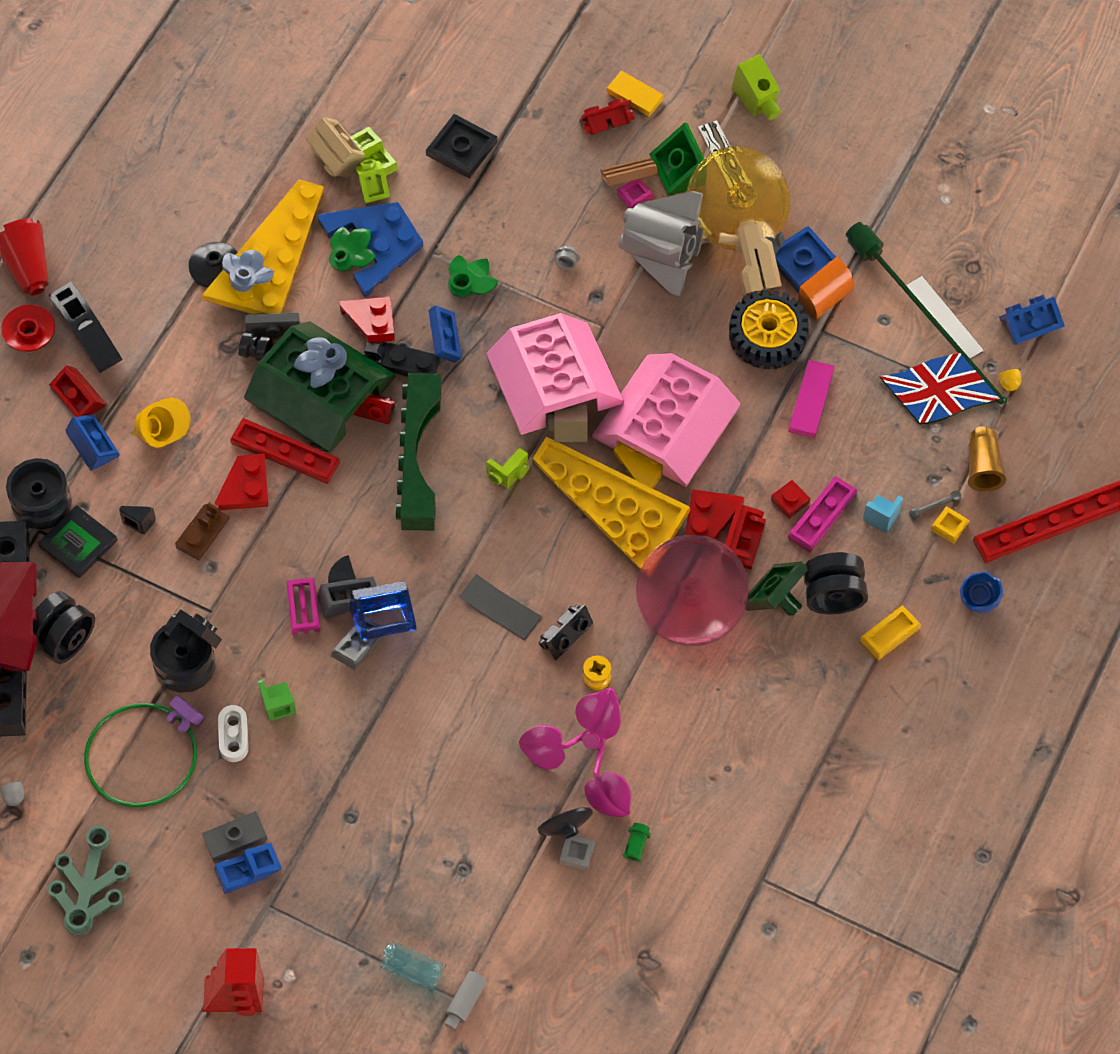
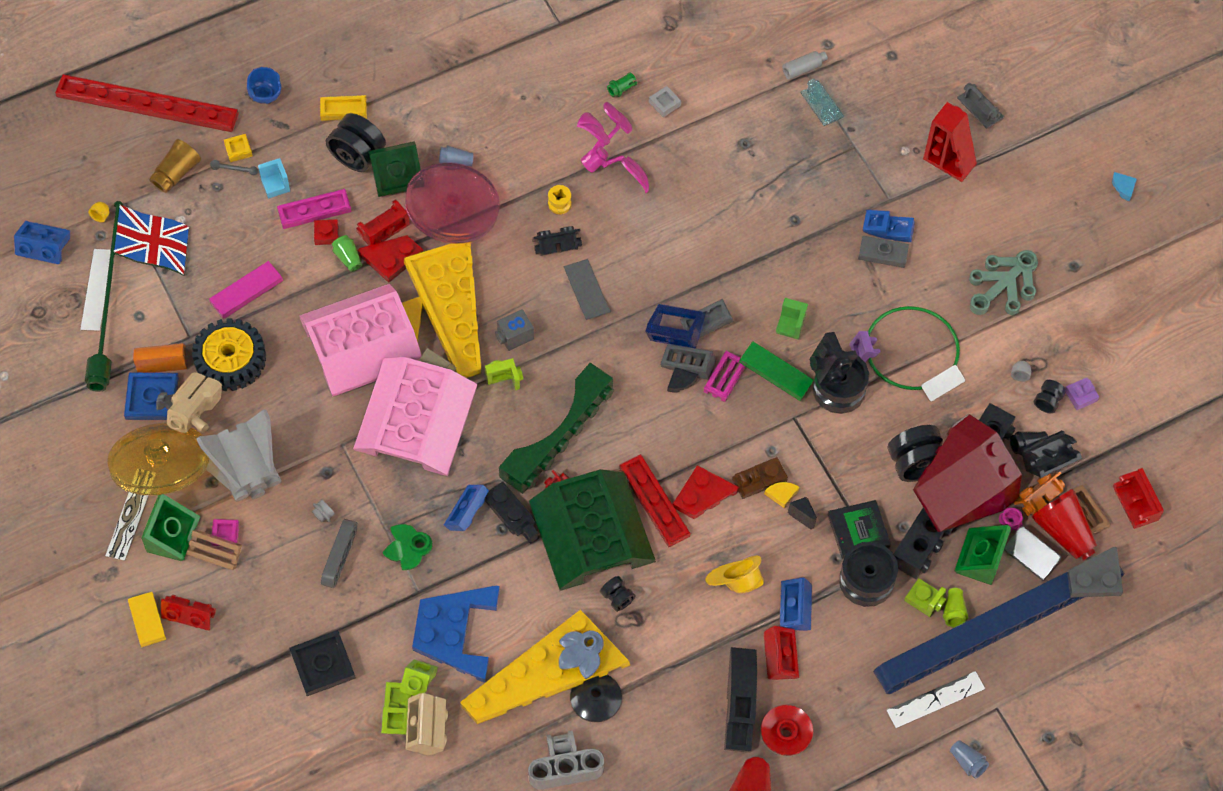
camera: 145 degrees left, 0 degrees up
(86, 735) = (943, 383): none -> white sticker
(171, 529) = (782, 492): none -> yellow tile
(205, 200) = (564, 752): none -> light grey piece
(233, 735) = (837, 316): white plate -> none
(257, 635) = (776, 371): none -> green tile
(271, 324) = (591, 602): dark grey plate -> none
(318, 360) = (588, 523): sand blue plate -> none
(353, 247) = (479, 628): green plate -> none
(371, 318) = (510, 558): wing -> none
(522, 232) = (339, 553): none -> dark grey beam
(531, 514) = (514, 330): none -> dark grey brick
(565, 823) = (661, 113): black dish -> none
(735, 647) = (455, 155): none -> sand blue cone
(752, 487) = (346, 251): none -> bright green cone
(757, 87) = (55, 546): lime torso -> none

